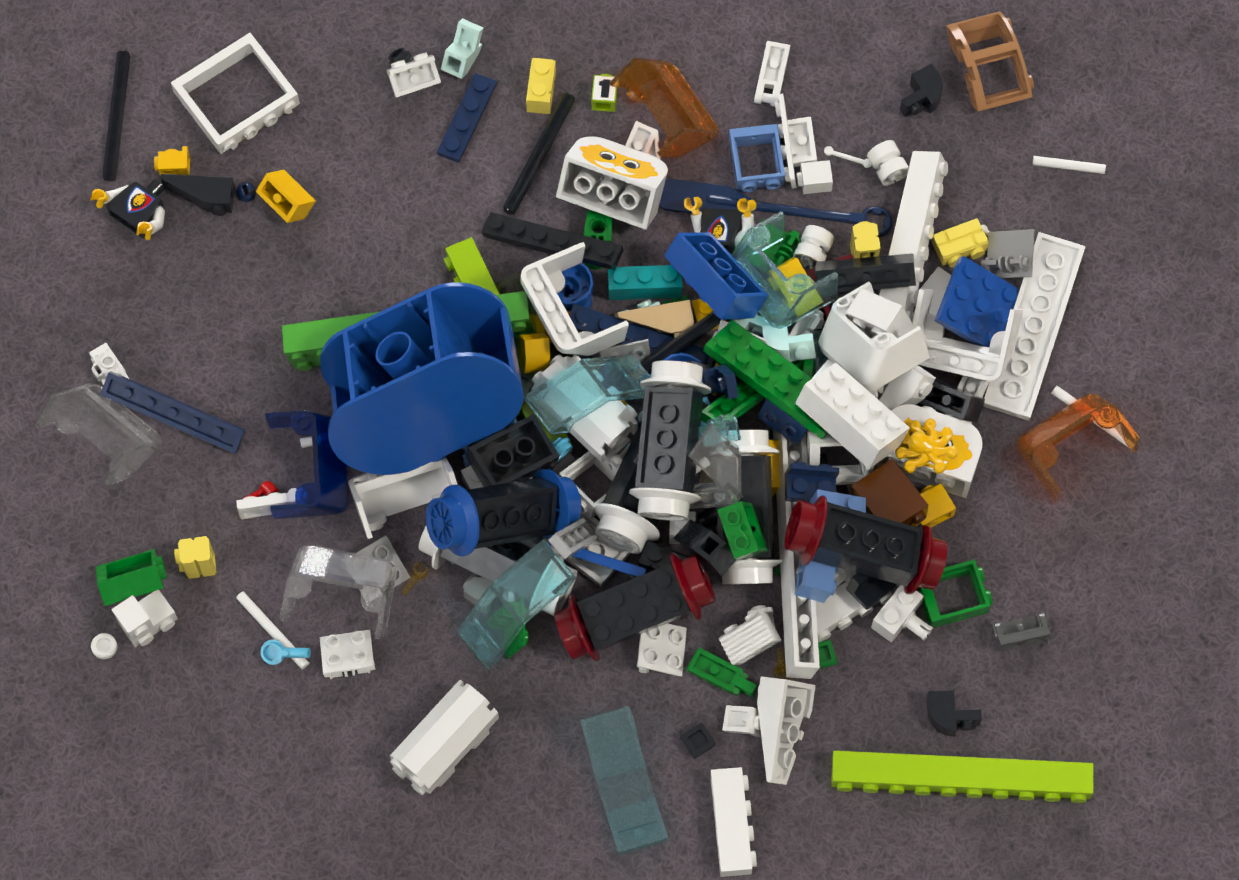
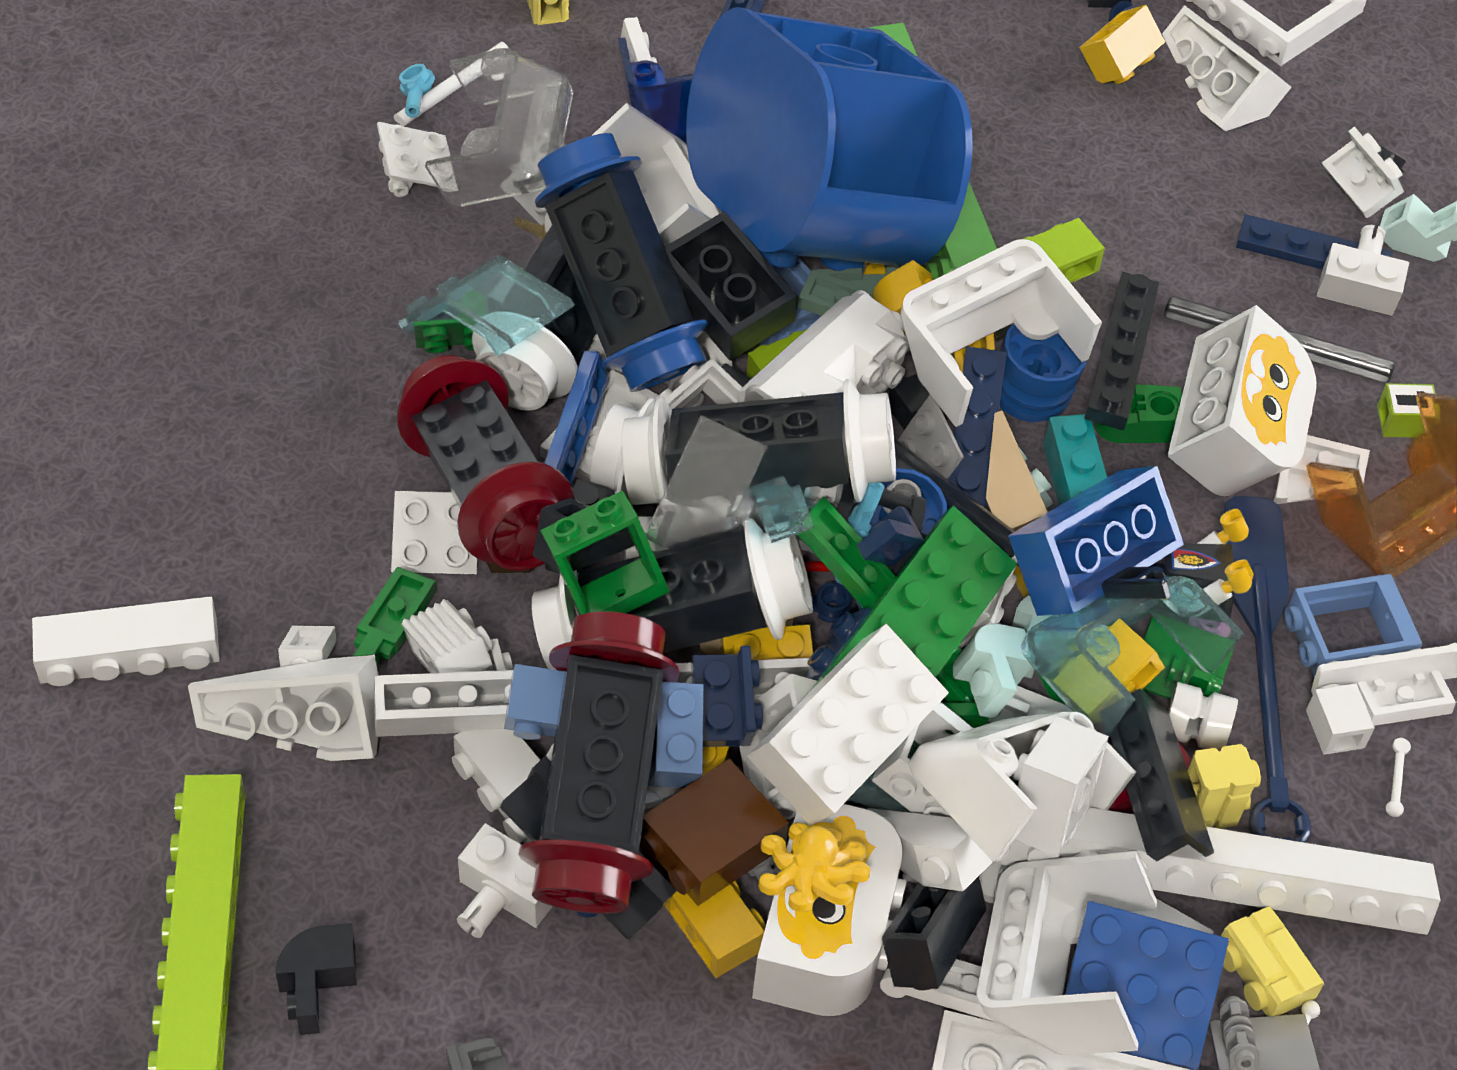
camera: 80 degrees right, 15 degrees down
(266, 488) = (664, 60): red hand -> none
(314, 137) = (1230, 80): none -> white wedge
(444, 738) = (273, 254): white brick -> none
(499, 93) = (1364, 275): none -> white brick
(541, 86) = (1394, 327): light yellow brick -> none
(562, 447) = (754, 359): medium azure plate -> none
(573, 538) = (585, 352): light grey plate -> none
(585, 389) = (846, 343): clear light blue windscreen -> none
(623, 780) = (201, 496): clear light blue windscreen -> none
(698, 740) = (273, 591): black plate -> none
(754, 257) = (1137, 583): none -> black tile
(826, 654) = (431, 769): green tile -> none
(888, 162) = (1402, 828): white wheel -> none
(983, 596) = (537, 929): green window -> none

